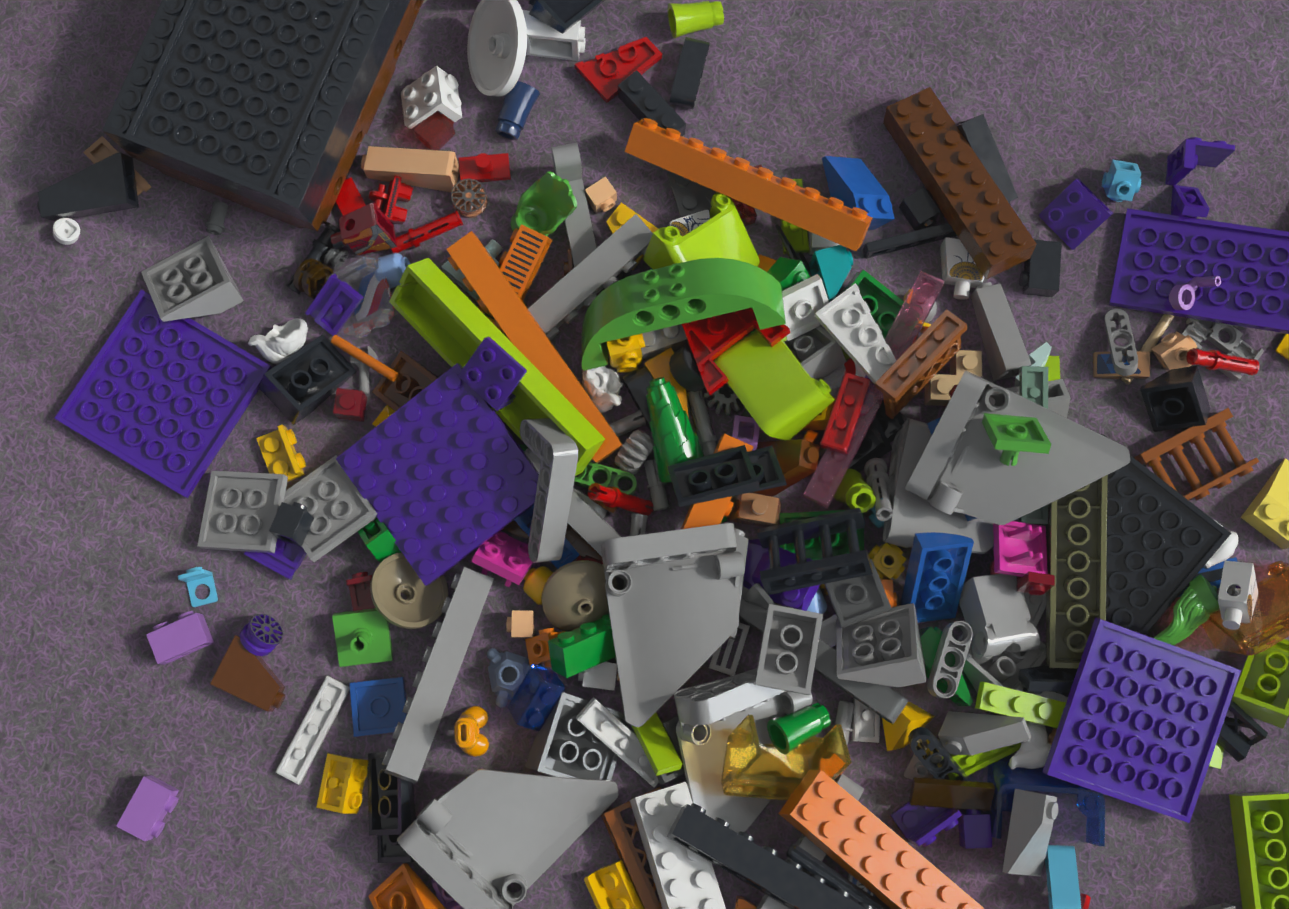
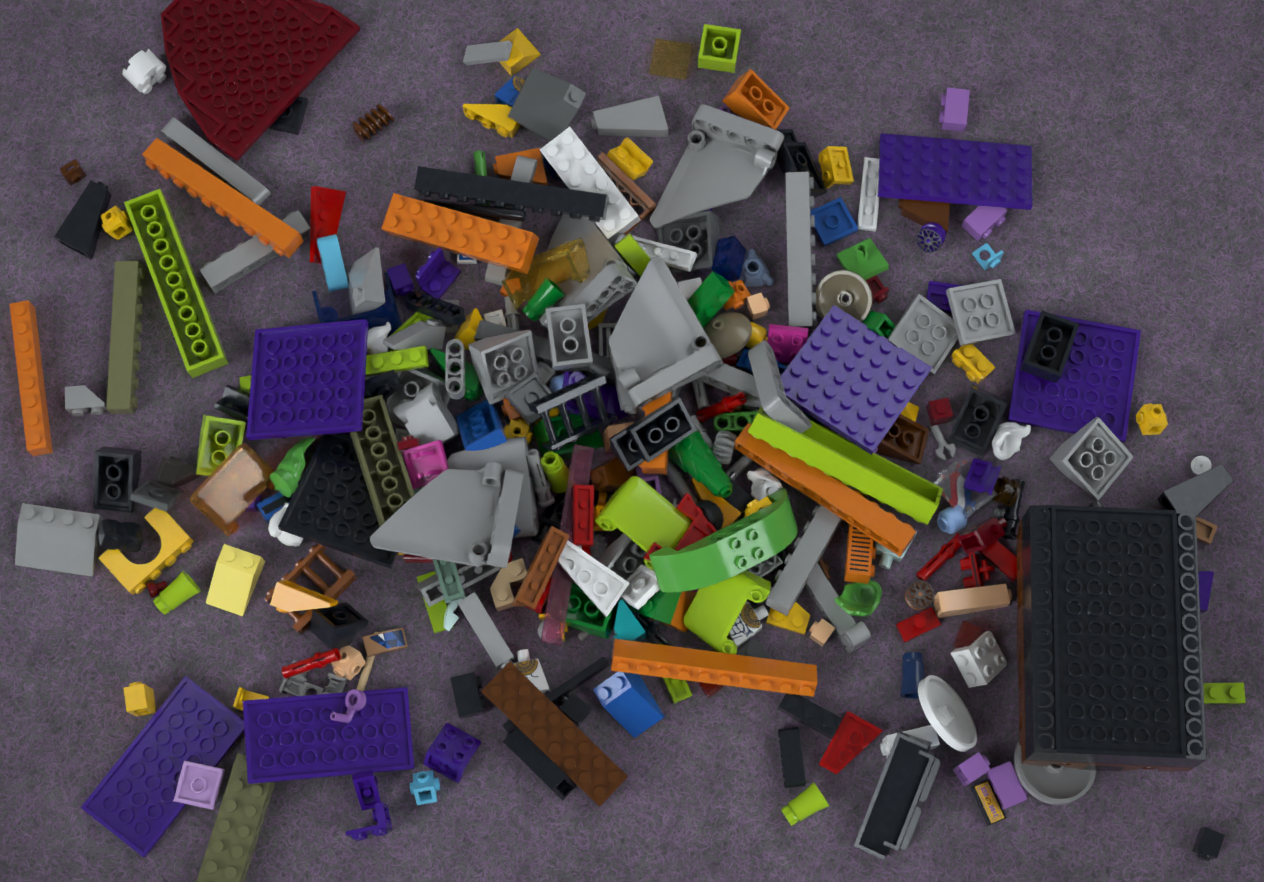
camera: 170 degrees right, 5 degrees down
(96, 303) = (1151, 419): none -> yellow brick
(177, 429) = (1049, 346): none -> black brick
(189, 716) = (955, 171): none -> dark purple plate
(292, 523) = (942, 311): black brick -> none
(364, 358) = (944, 447): orange bar -> none
(467, 731) = (764, 221): light orange piece -> none
(493, 374) = (844, 447): dark purple bracket -> none
(951, 794) = (424, 293): dark brown tile -> none
(1015, 435) = (459, 524): bright green tile -> none
(1117, 351) = (391, 671): light grey beam -> none
(1218, 440) = (293, 597): none -> light orange slope
(1234, 603) = (263, 484): white torso -> none

